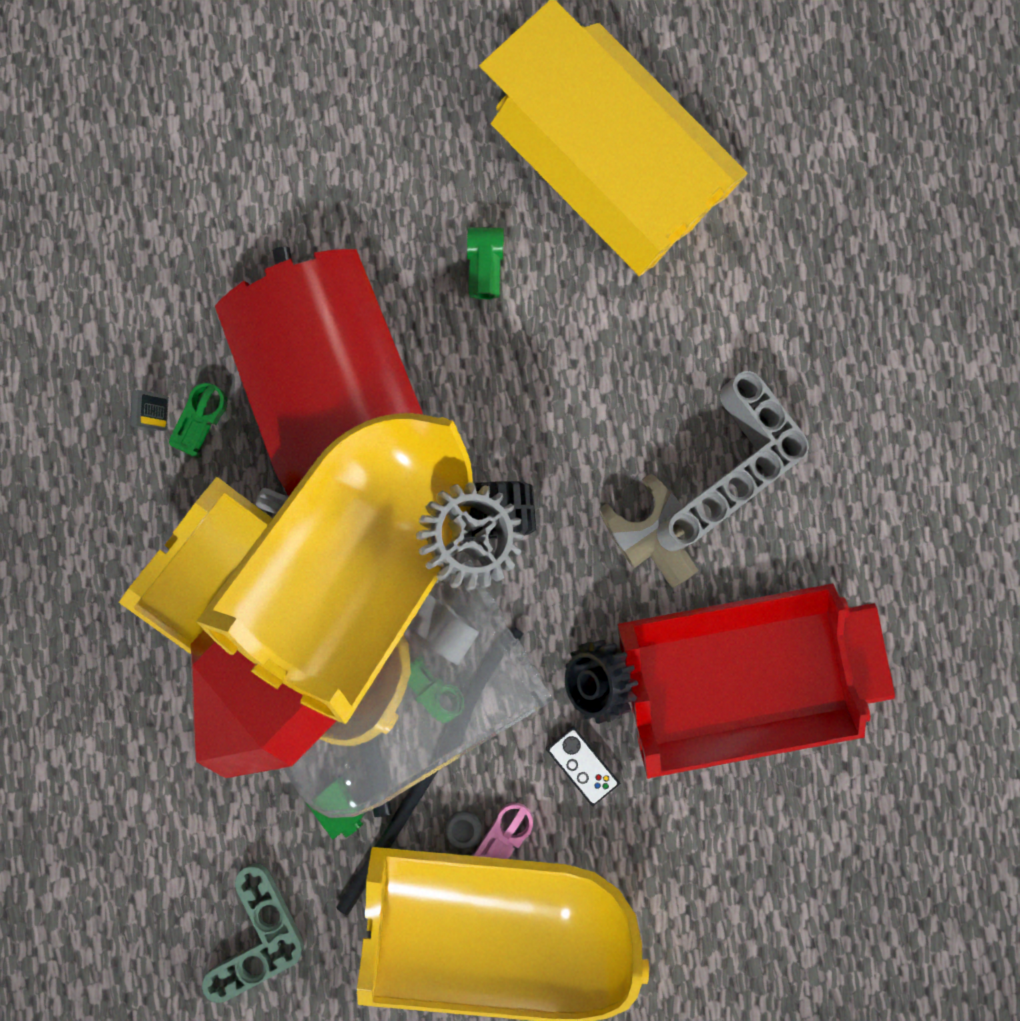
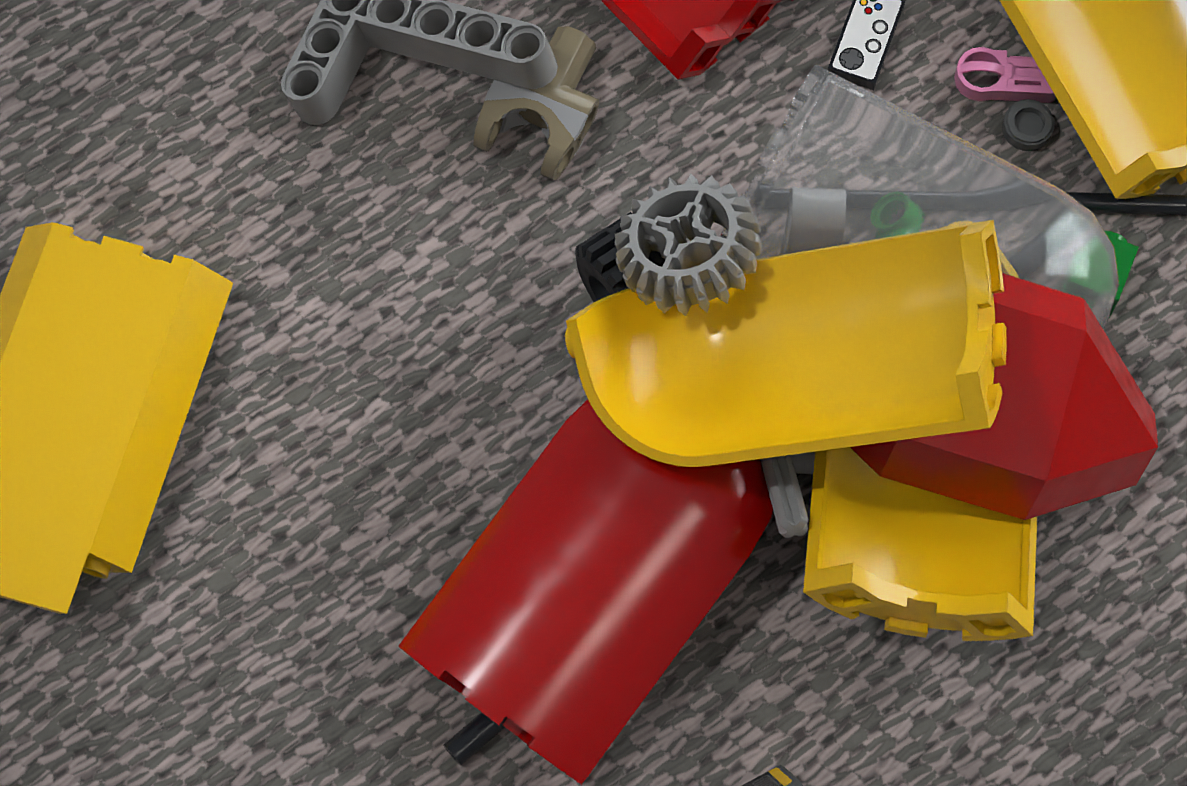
camera: 120 degrees left, 15 degrees down
(192, 424) = (753, 725): green piece -> none
(485, 253) = (308, 487): green piece -> none
(599, 681) = (758, 57): black gear -> none

